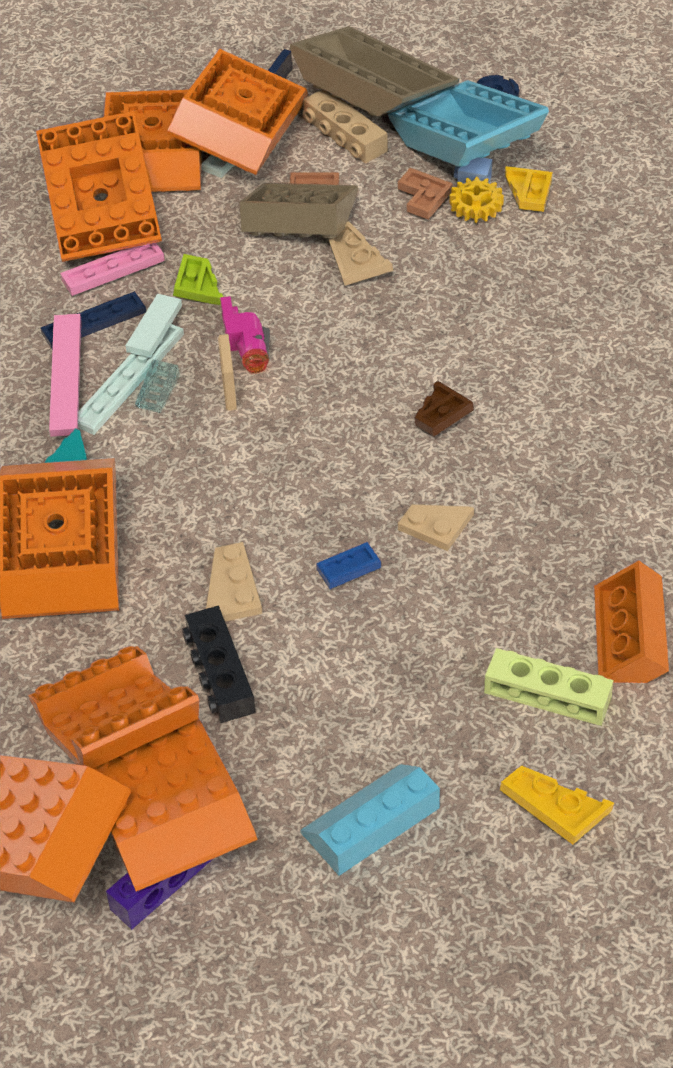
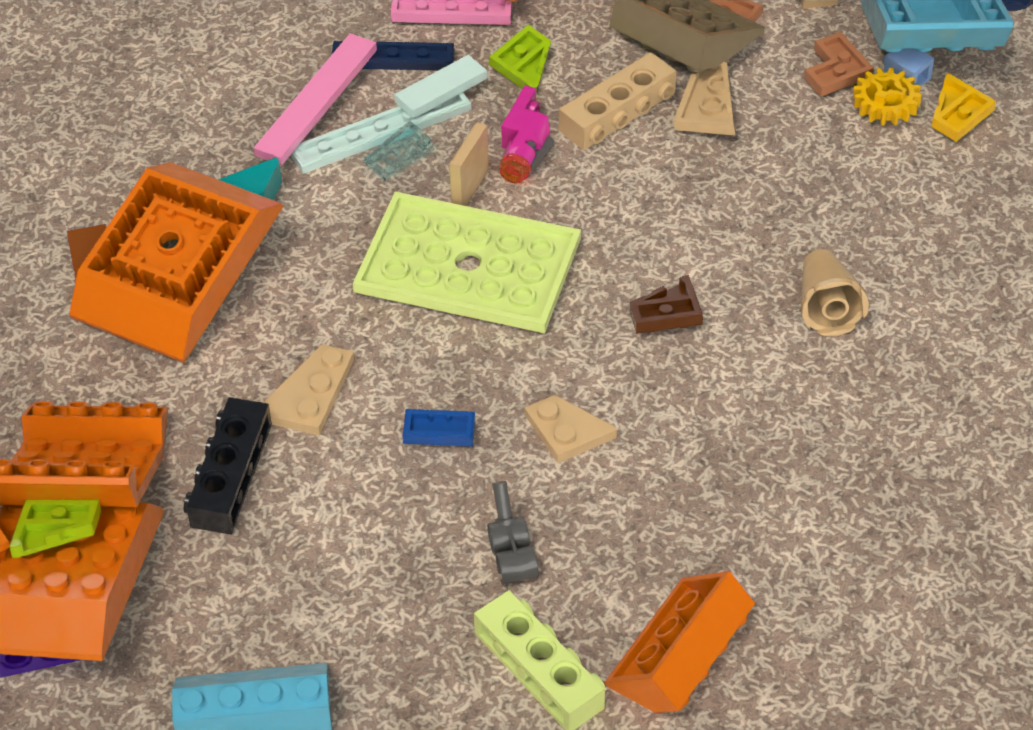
camera: 30 degrees right, 0 degrees up
(151, 759) = (53, 523): none -> lime wing
(231, 441) = (518, 259): none -> yellowish green plate
(291, 282) = (617, 101): none -> tan brick
(462, 619) = (511, 541): none -> dark grey beam
(548, 348) = (830, 295): none -> tan cone

